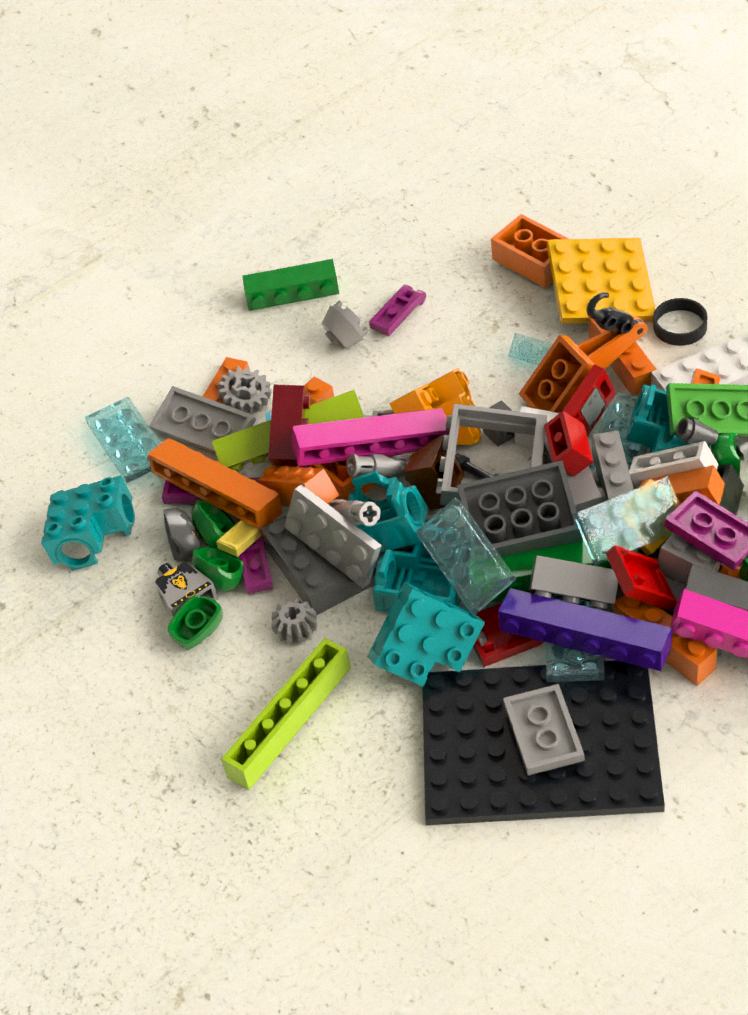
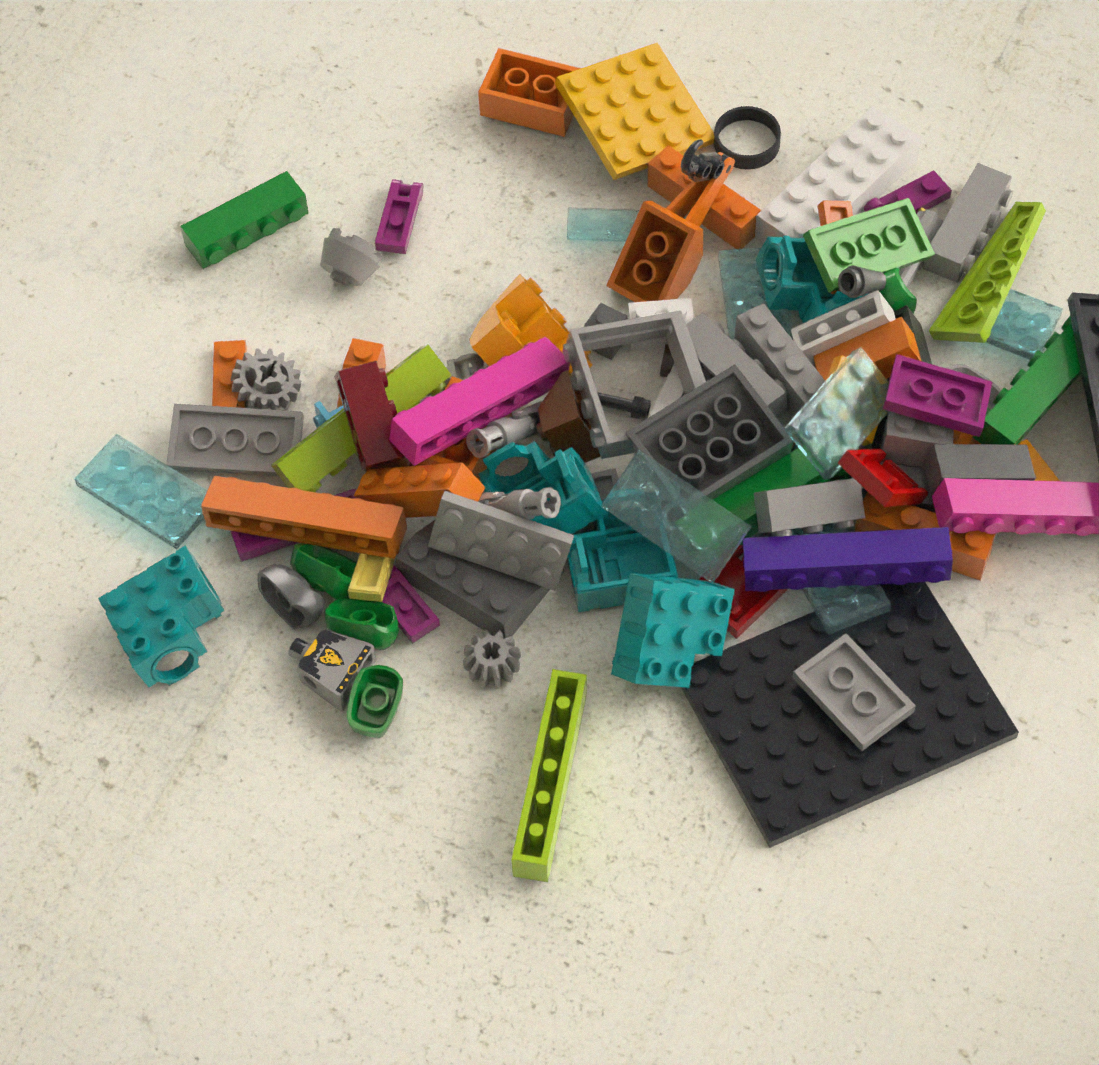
camera: 30 degrees left, 10 degrees up
(568, 443) = (722, 337): red brick -> none
(590, 399) = (707, 272): red container -> none

